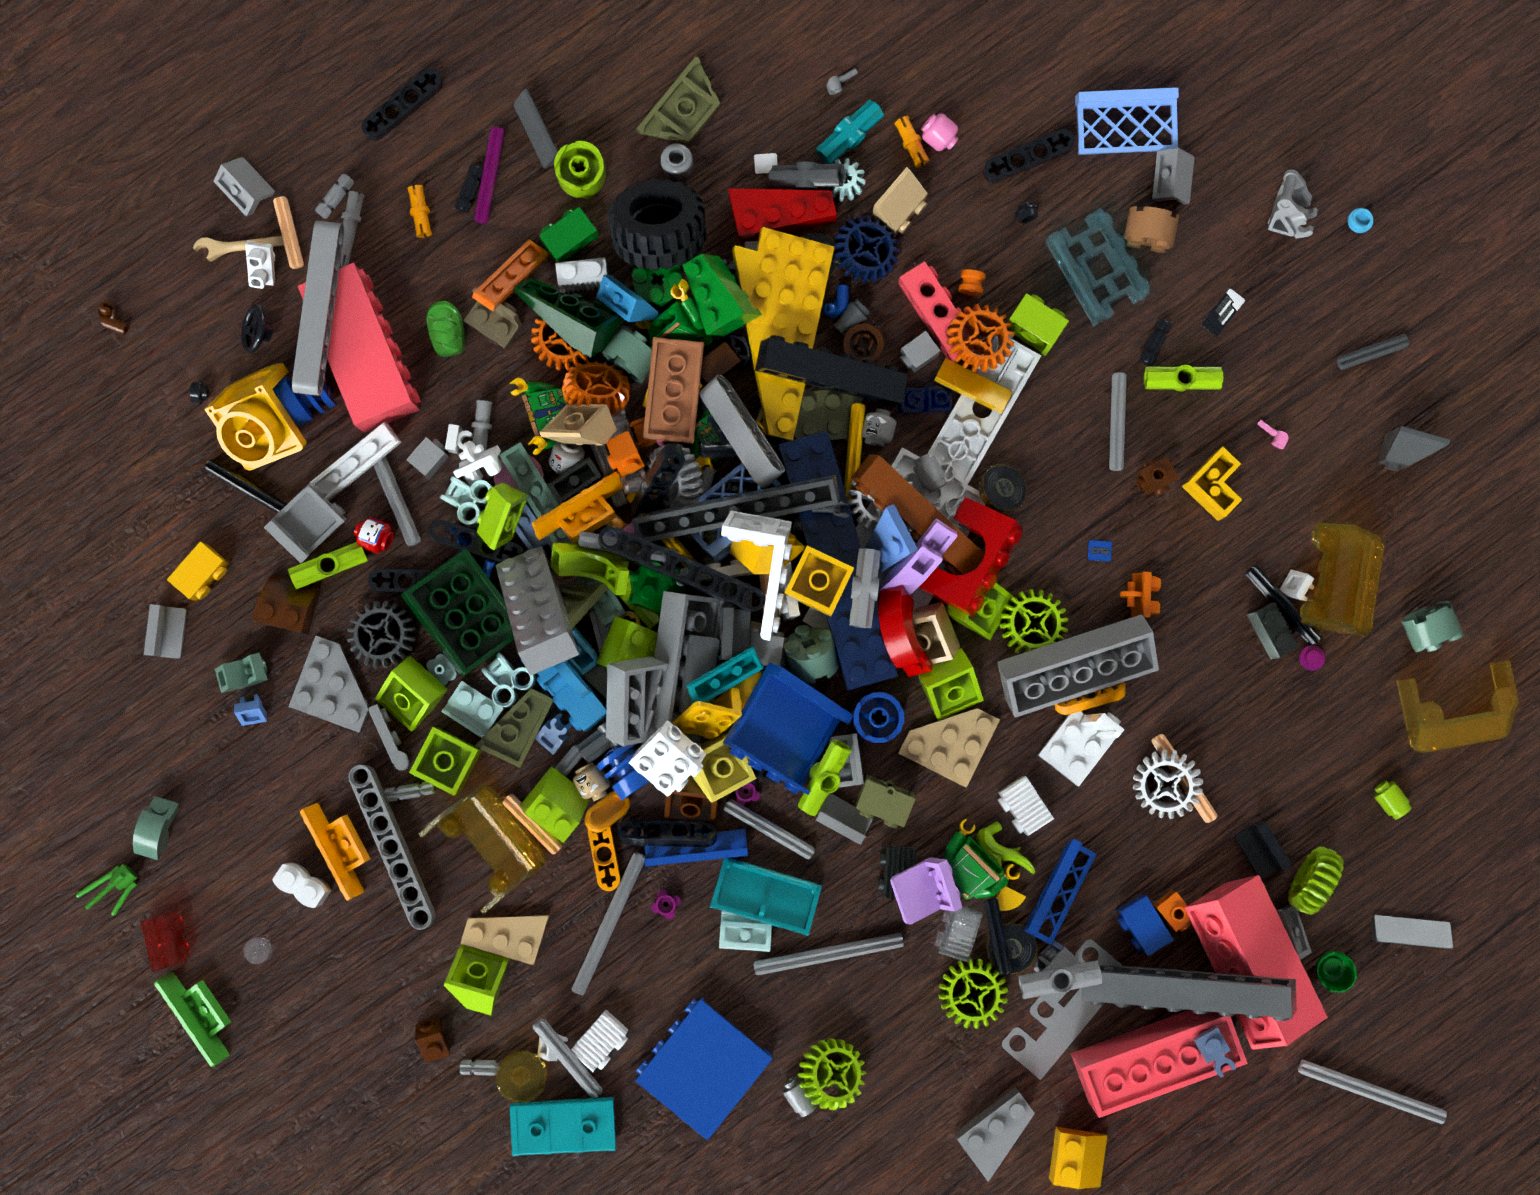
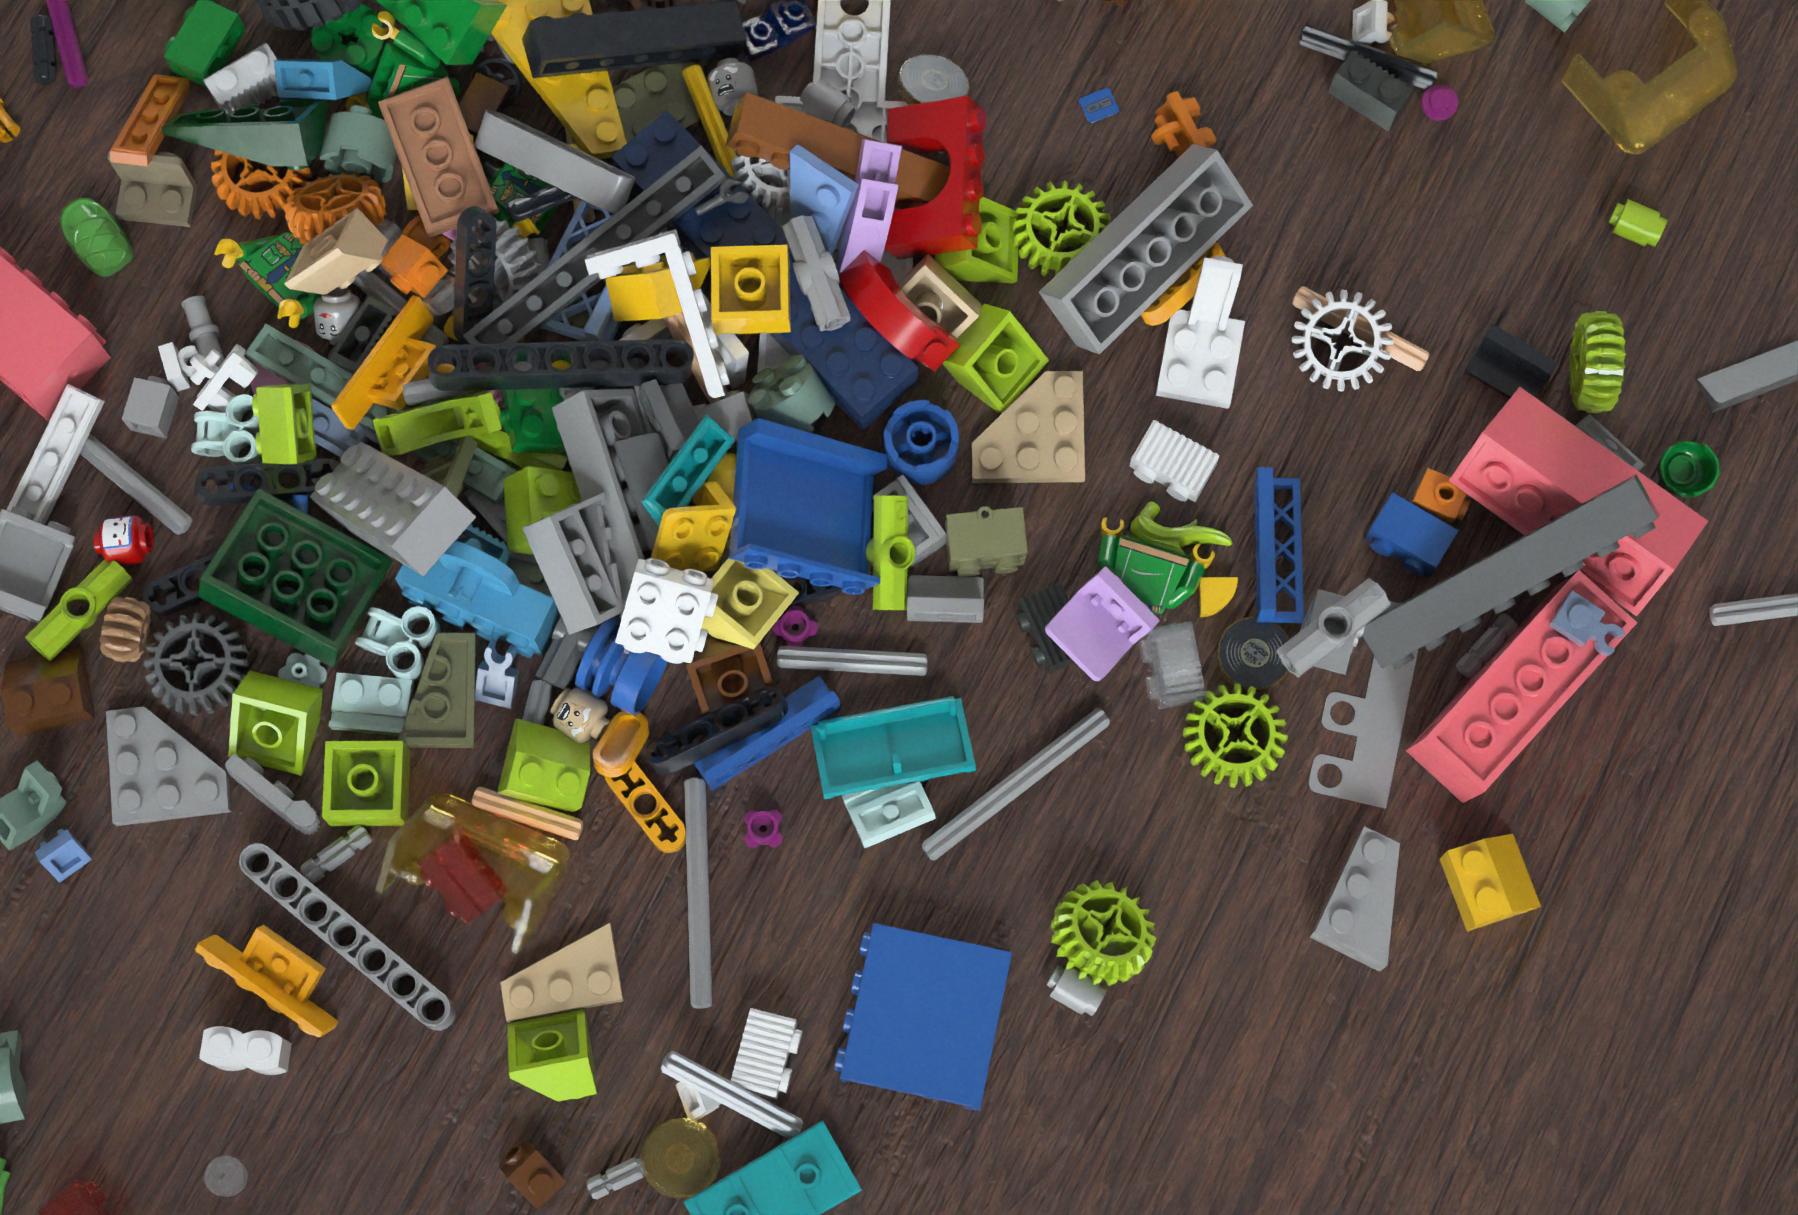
camera: 25 degrees left, 10 degrees down
(348, 593) = (125, 629): none -> medium nougat gear
(474, 847) = (462, 877): none -> clear red brick
(997, 936) = (1227, 643): black axle -> none
(1149, 1017) = (1486, 645): none -> light grey axle

